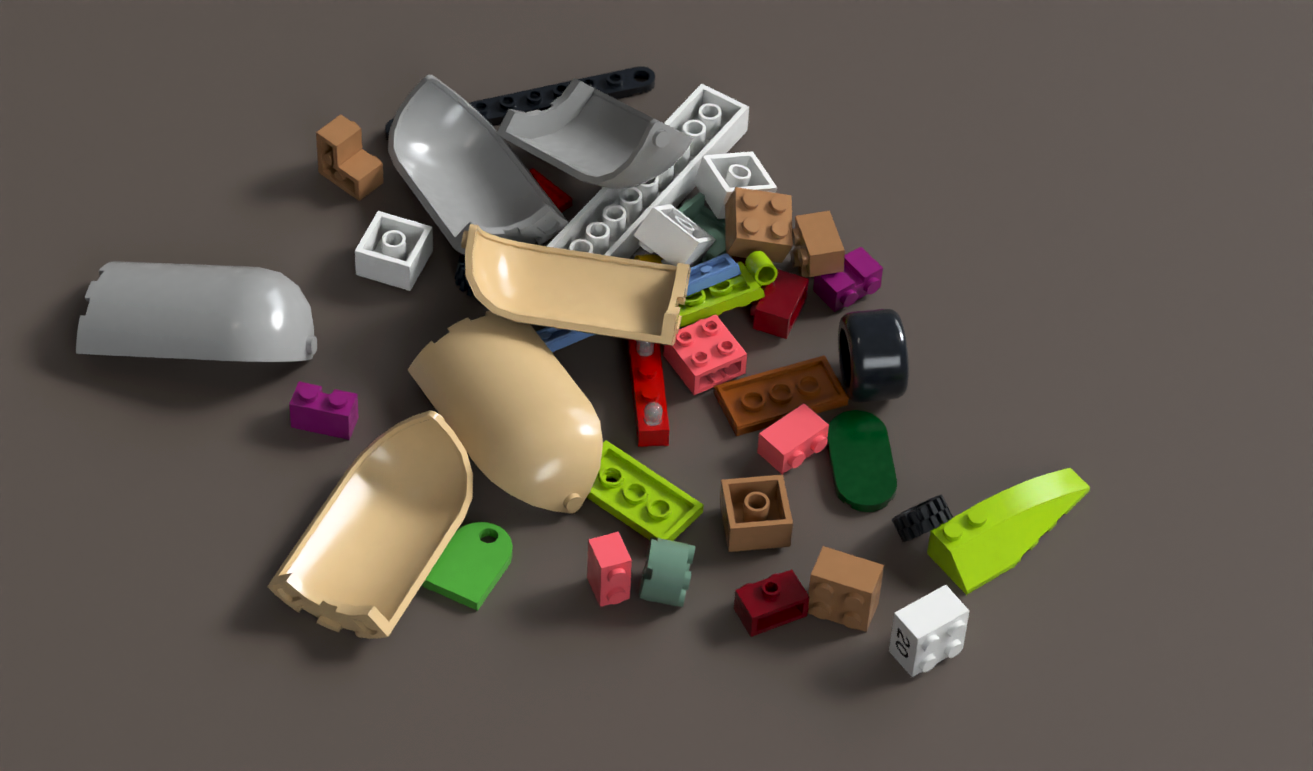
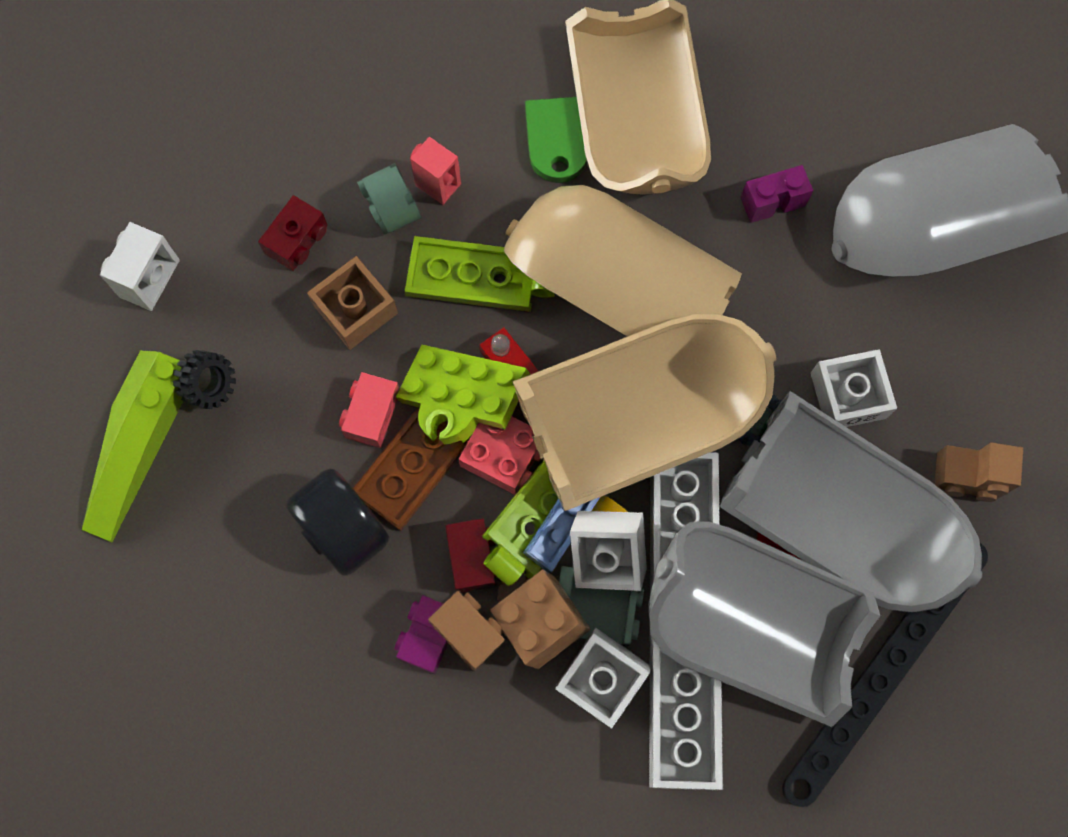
camera: 150 degrees right, 25 degrees up
(710, 399) = (459, 391): none -> lime plate
(844, 589) = (231, 265): medium nougat brick -> none
(861, 461) = (300, 429): dark green tile -> none

